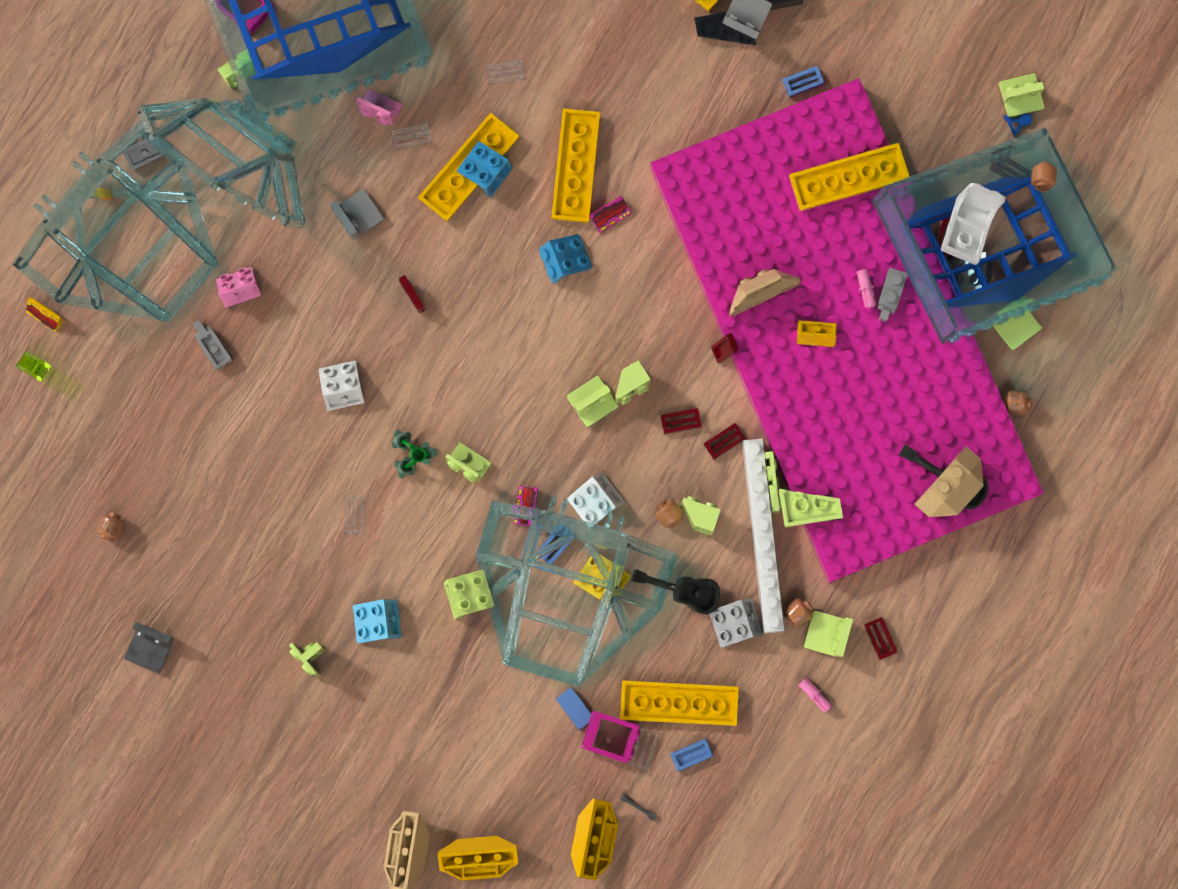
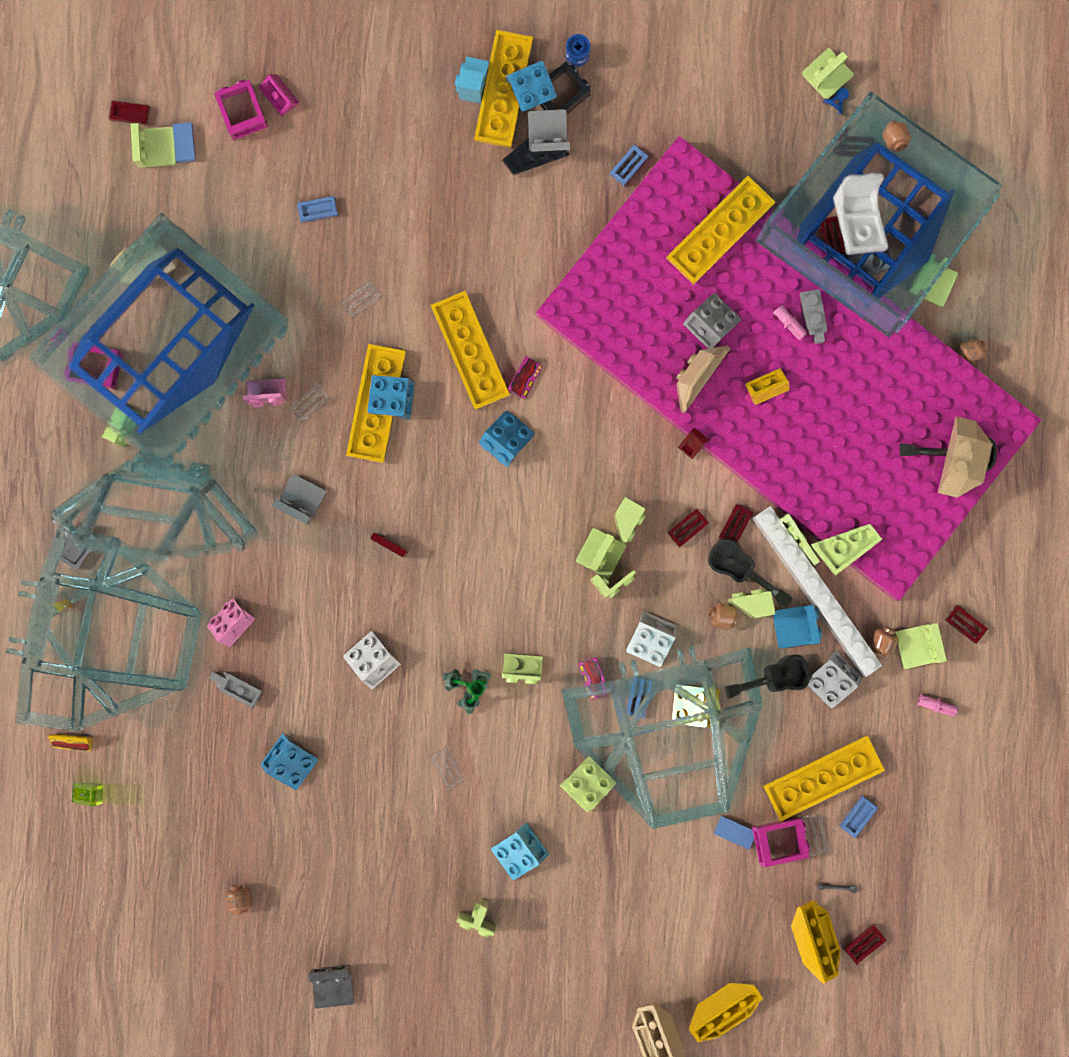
camera: 25 degrees left, 5 degrees up
(220, 434) = (288, 762): none -> dark azure bracket
(584, 437) = (602, 583): none -> yellowish green bracket
(651, 866) = (869, 950): none -> dark red tile
(702, 468) = (729, 559): none -> pearl dark grey piece
(728, 557) = (797, 626): none -> dark azure bracket
(798, 250) = (712, 321): none -> light grey bracket

